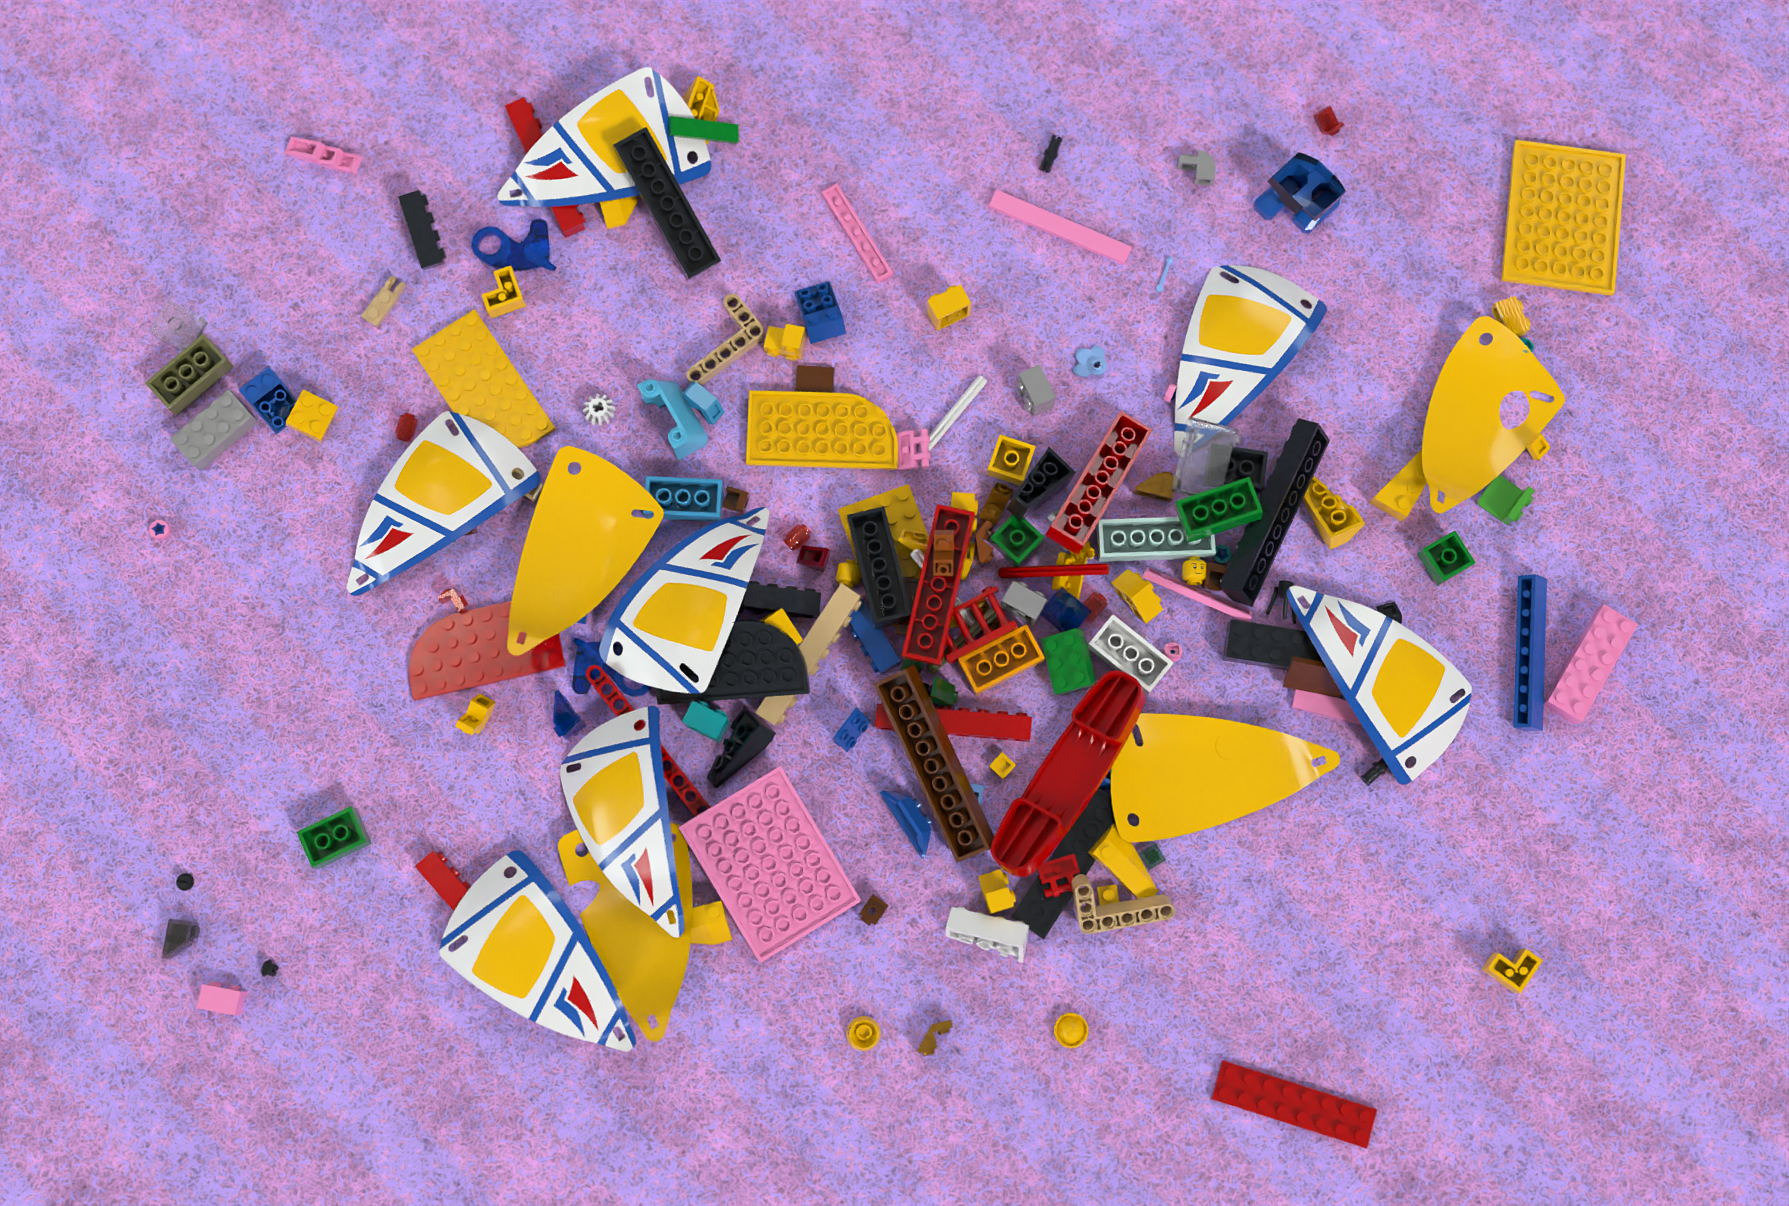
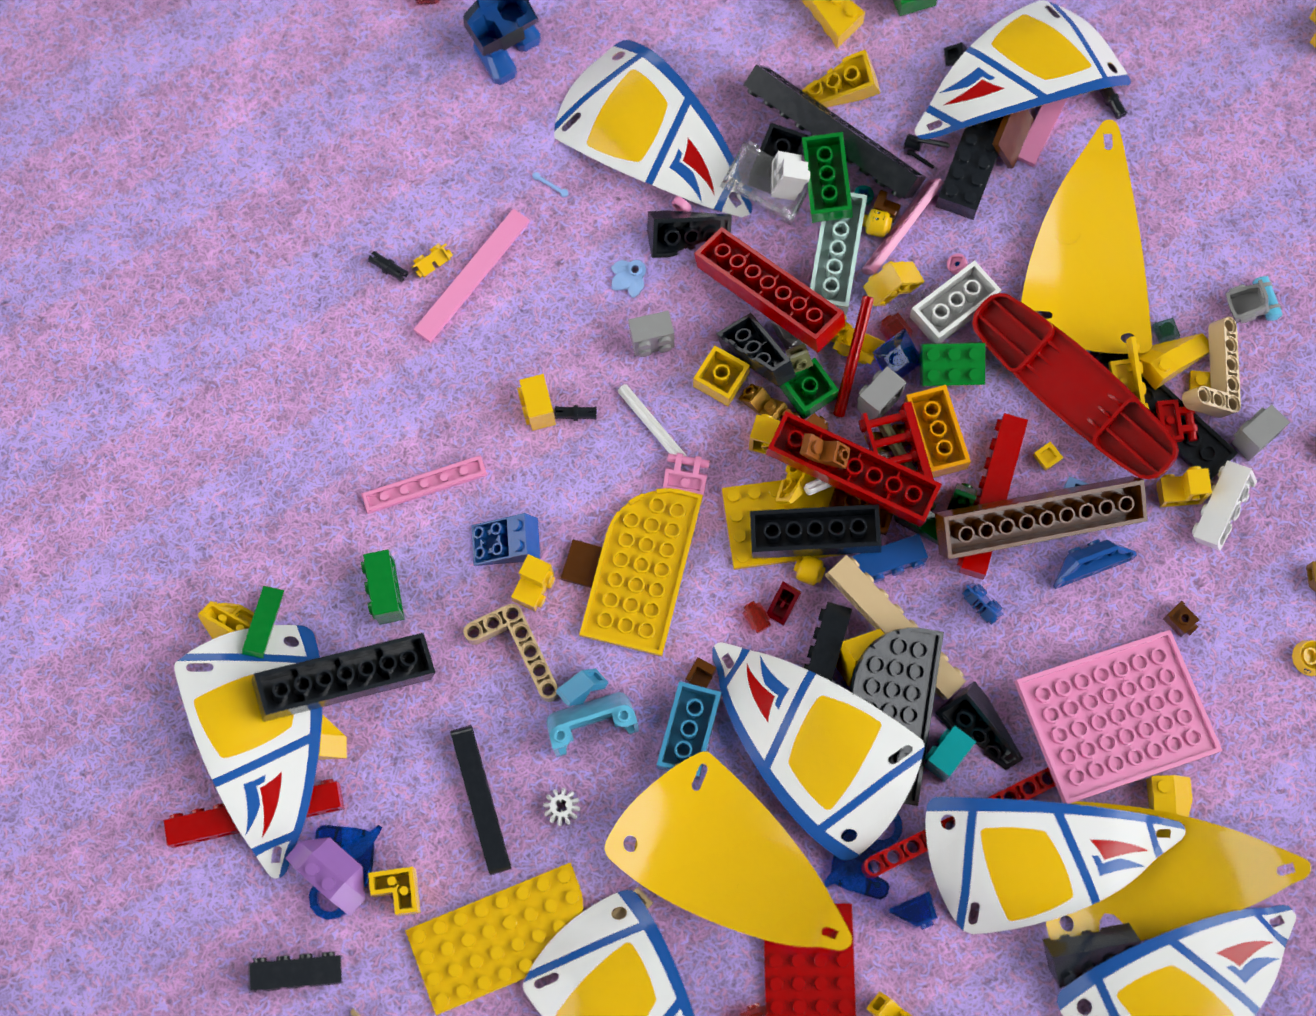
camera: 75 degrees left, 5 degrees down
(506, 236) = (330, 871): none -> medium lavender wedge
(552, 859) = (1076, 955): none -> black wedge
(592, 342) = (480, 800): none -> black beam
(754, 219) = (382, 587): none -> green brick
(950, 344) = (576, 412): none -> black pin
(1037, 521) = (799, 357): none -> olive bracket
(1066, 954) = (1259, 431): none -> light grey brick
(1071, 192) = (425, 265): none -> yellow hinge
(1091, 820) = (1130, 370): none -> yellow bracket
(1145, 395) = (681, 230): none -> black wedge
(1157, 487) = (780, 237): pearl gold slope -> none
(1199, 933) = (1254, 301): none -> light grey piece
(1202, 164) = (444, 119): light grey brick -> none
(1210, 473) = (788, 175): none -> white brick

